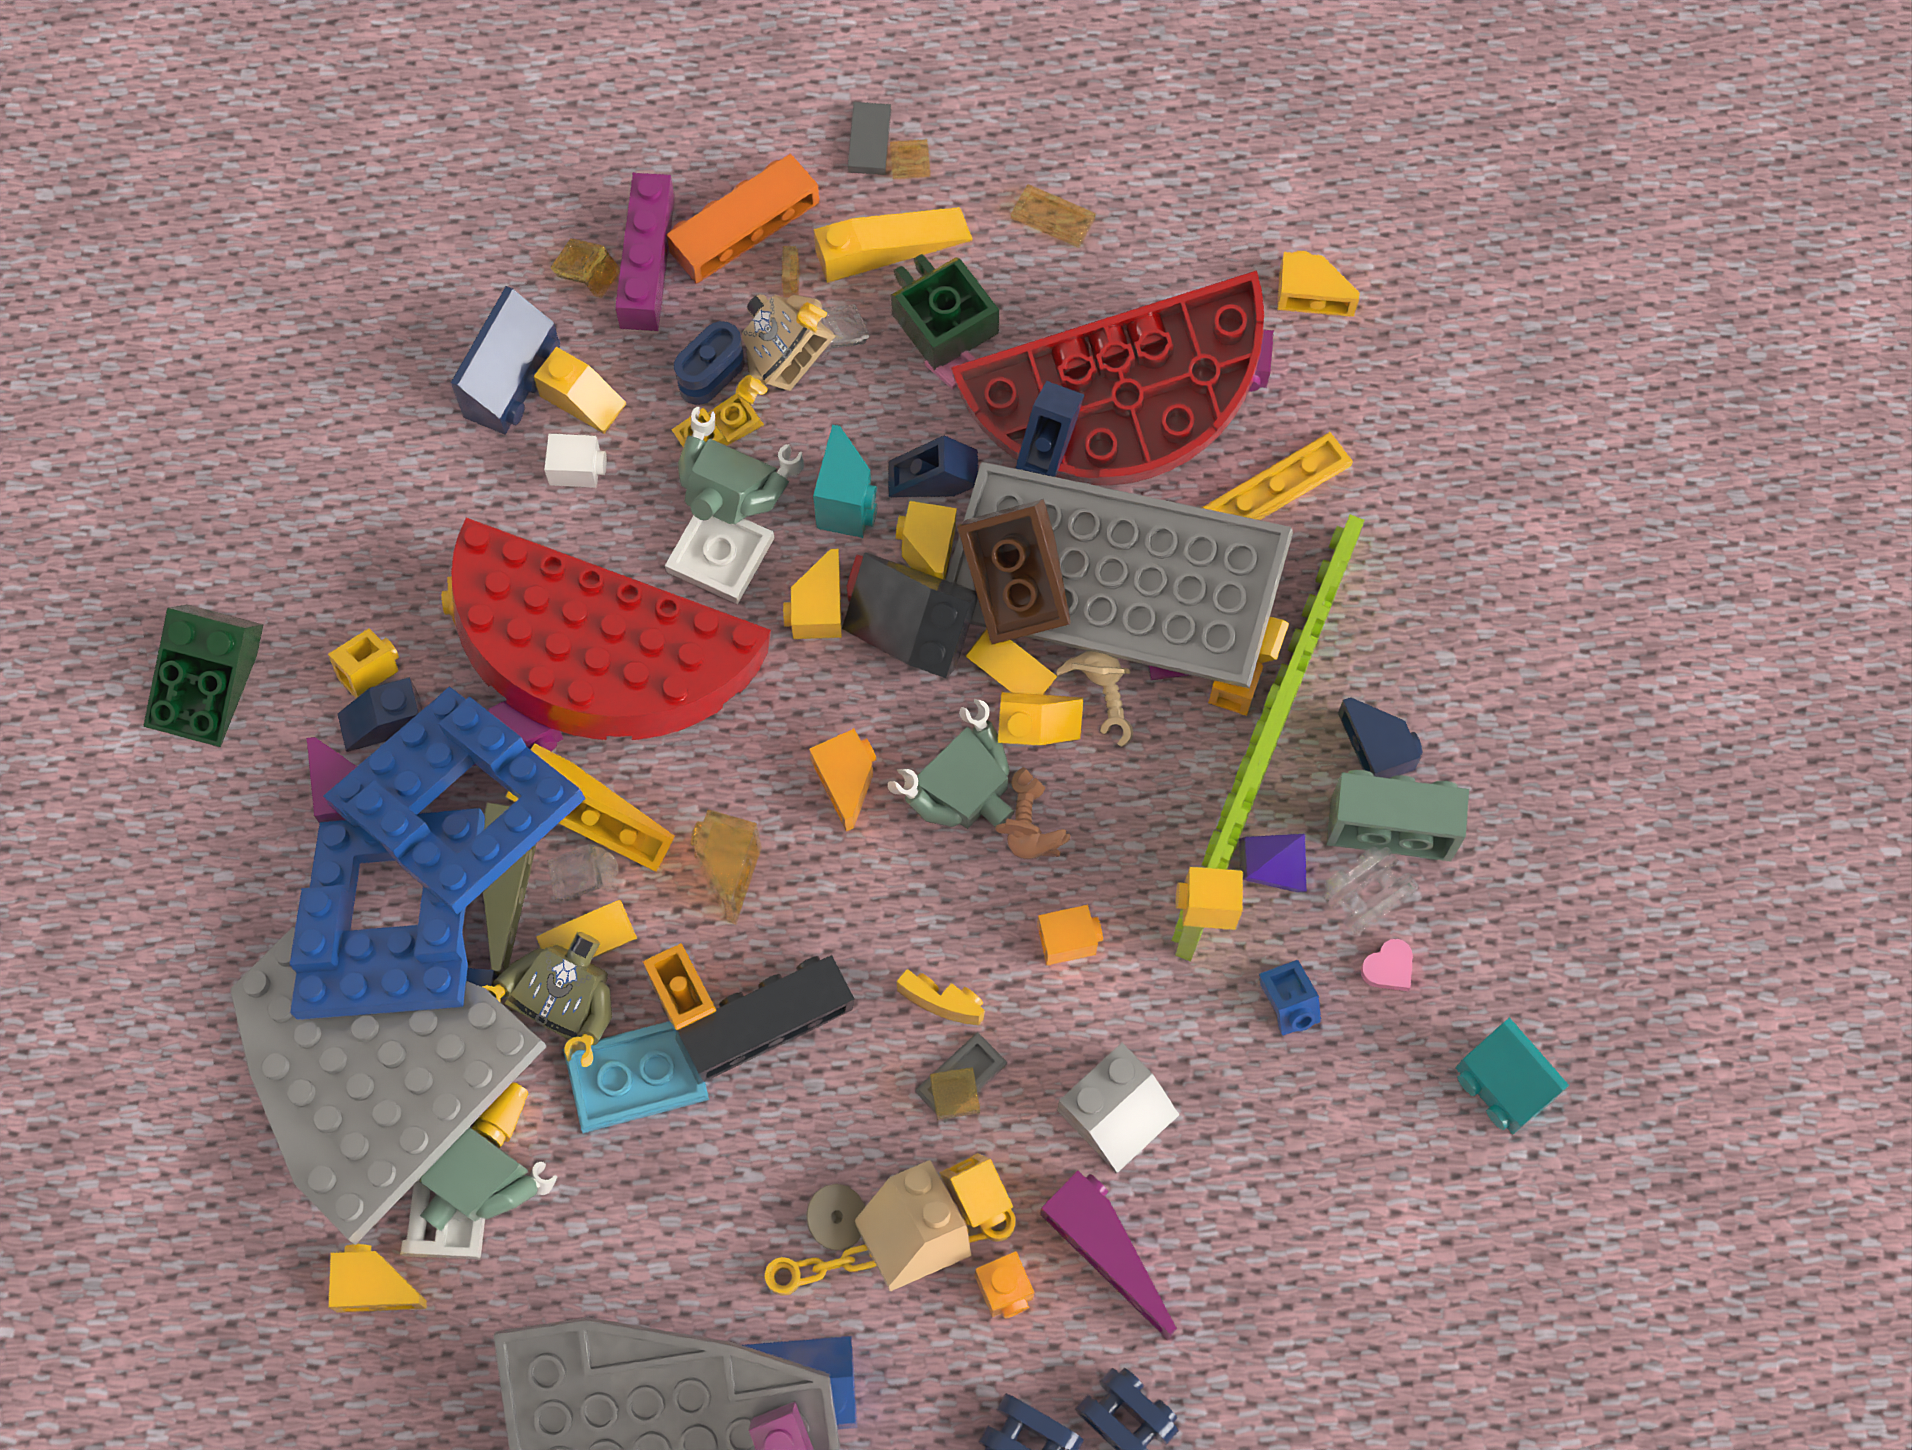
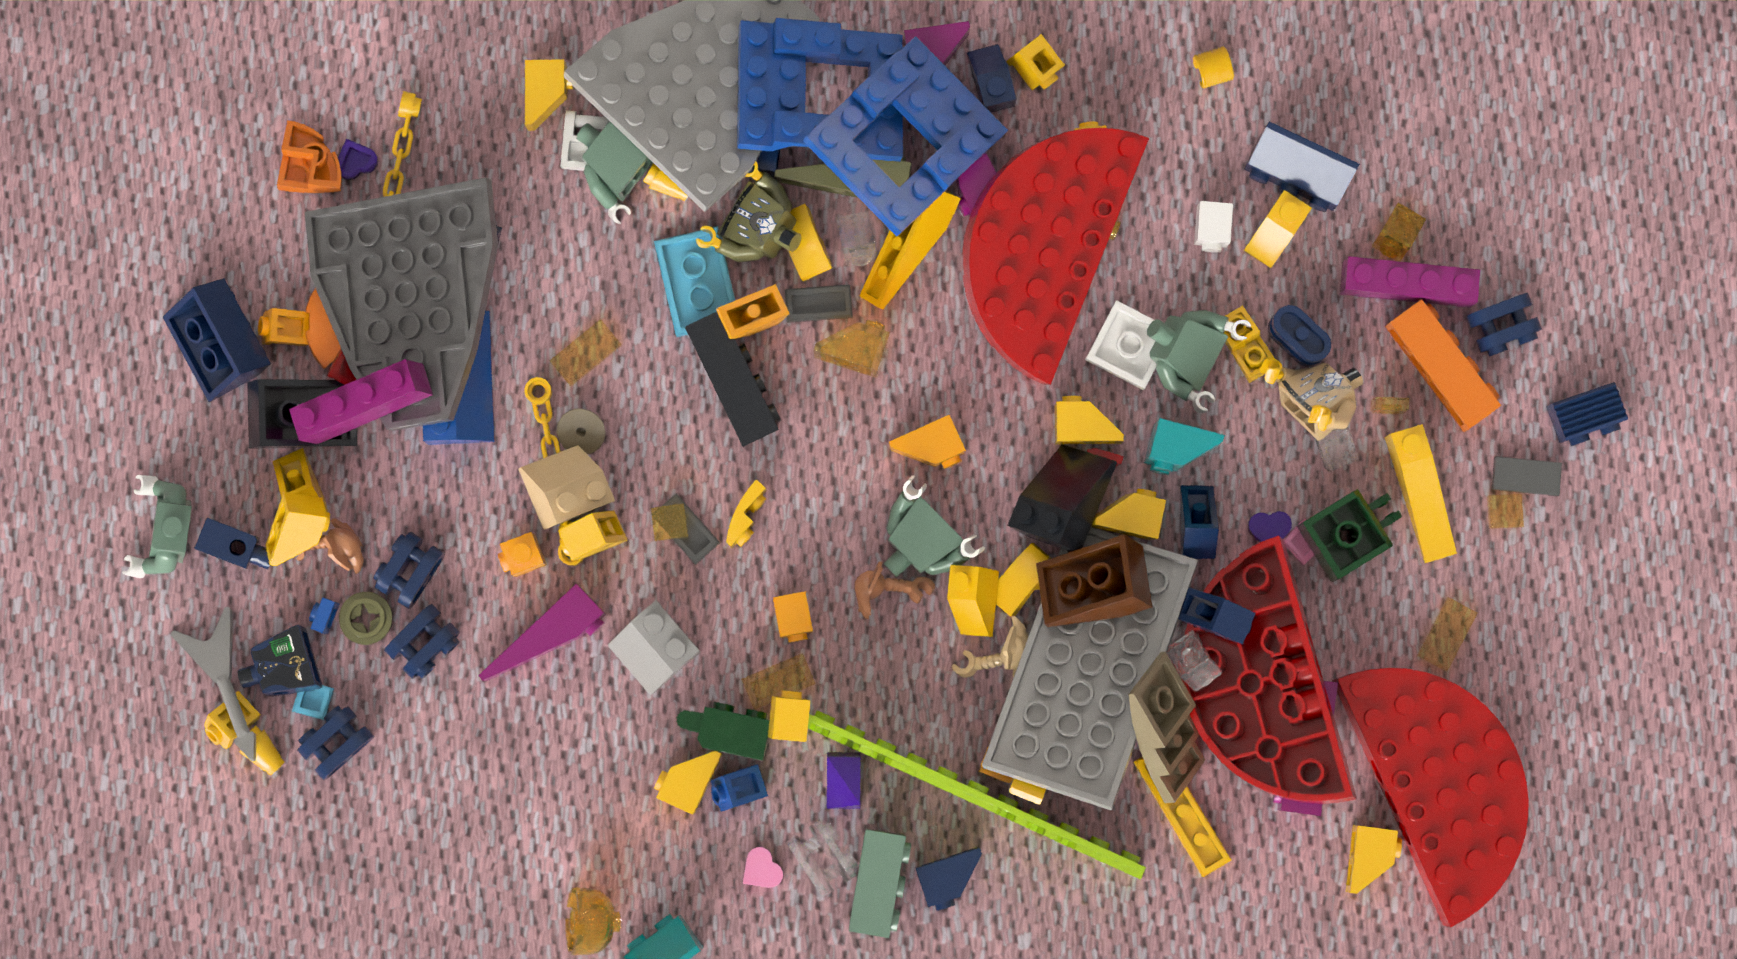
camera: 90 degrees right, 15 degrees up
(378, 457) = (1214, 67): none -> yellow piece
(665, 914) = (818, 303): none -> dark grey tile
(704, 140) = (1523, 330): none -> dark blue brick
(730, 1216) = (585, 353): none -> clear yellow tile
(797, 75) = (1587, 413): none -> dark blue brick
(937, 397) = (1267, 526): none -> dark purple tile
(1104, 455) = (1193, 661): none -> clear bracket
(1151, 954) = (787, 675): none -> clear yellow tile
(1187, 482) = (1164, 728): none -> dark tan slope
(1223, 1002) = (728, 731): none -> dark green hinge
(1224, 207) = (1446, 780): none -> red brick
(1287, 1057) = (687, 782): none -> yellow slope
(1480, 1174) = (590, 921): none -> clear yellow cylinder

